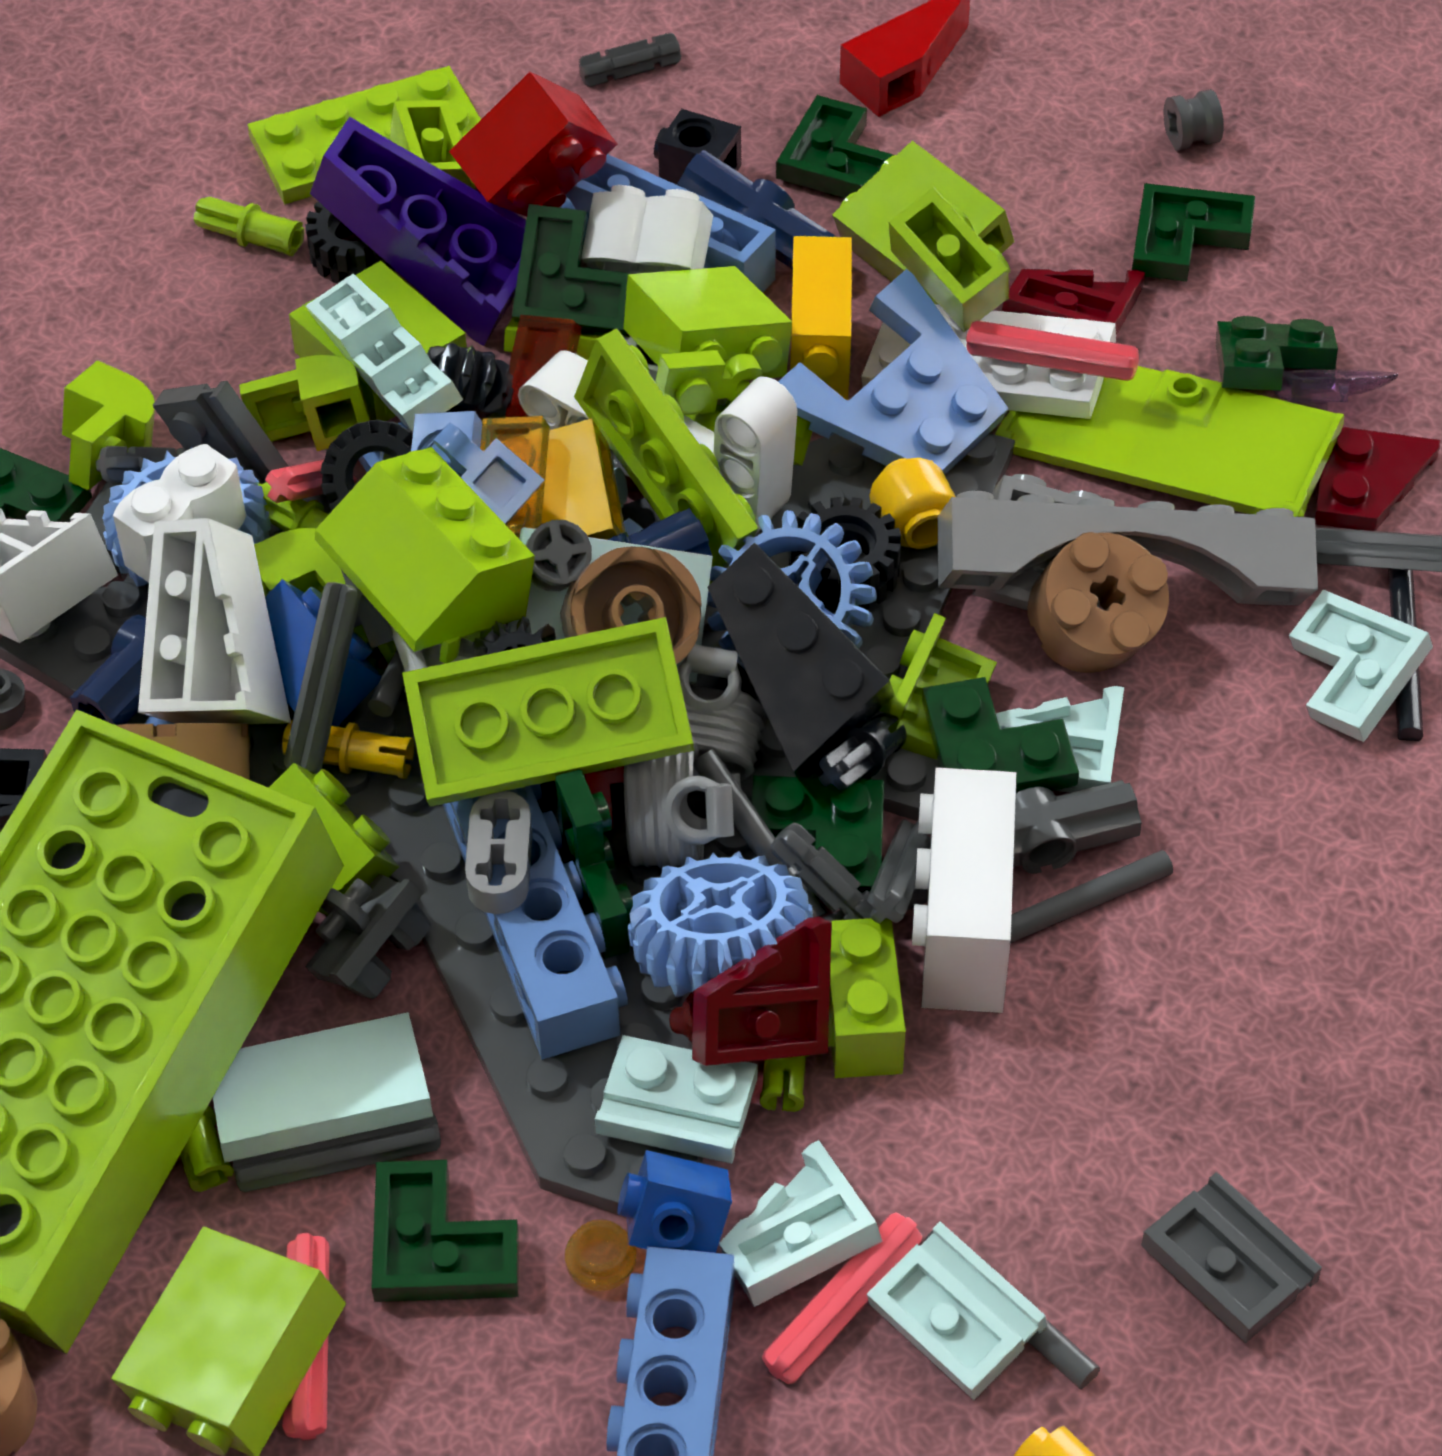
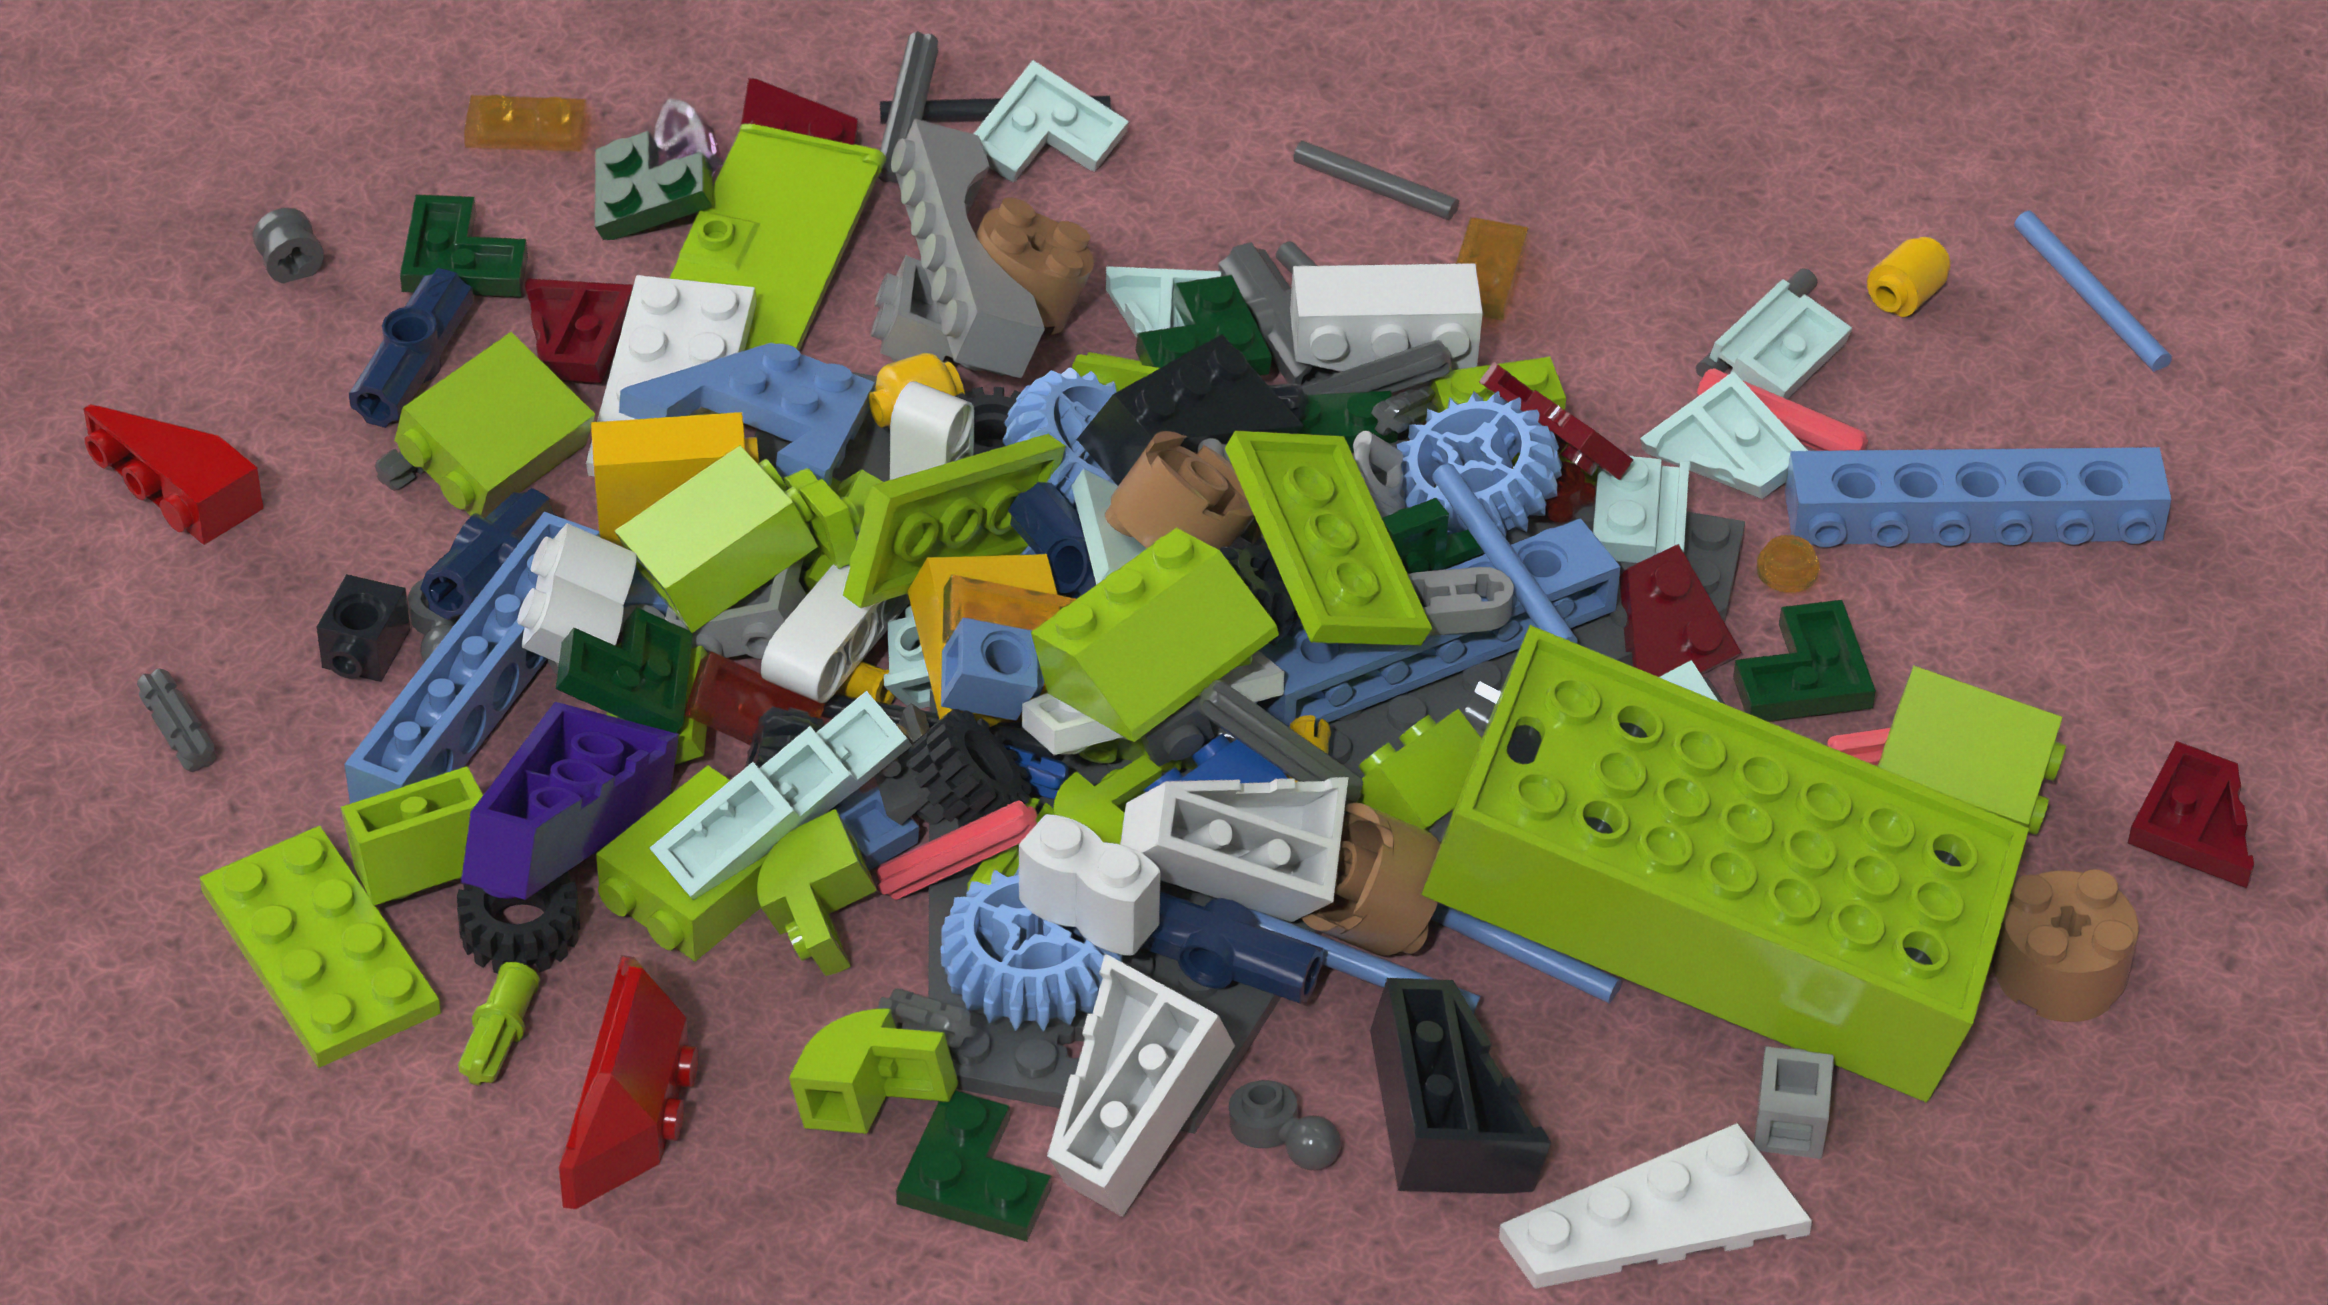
camera: 100 degrees left, 5 degrees down
(156, 278) = (629, 1089): none -> red wedge
(220, 420) = (908, 939): dark grey plate -> none
(493, 474) = (1034, 601): medium blue plate -> none
(509, 1107) = (1672, 617): none -> dark red wing
(533, 146) = (487, 668): red brick -> none
(553, 906) = (1500, 552): none -> medium blue bar
(566, 541) = (1140, 529): dark grey wheel -> none
(675, 1204) = (1750, 495): blue brick -> none
(825, 149) = (352, 535): dark green plate -> none
(950, 258) = (599, 356): lime brick -> none
(1052, 191) = (411, 347): none -> dark blue piece
(1052, 350) = (705, 299): coral axle -> none
(1115, 1036) = (1497, 253): none -> clear yellow plate
(1231, 1257) = (1682, 197): dark grey plate -> none
(1282, 961) = (1376, 180): none -> dark grey bar
(1379, 286) = (525, 123): none -> clear yellow plate

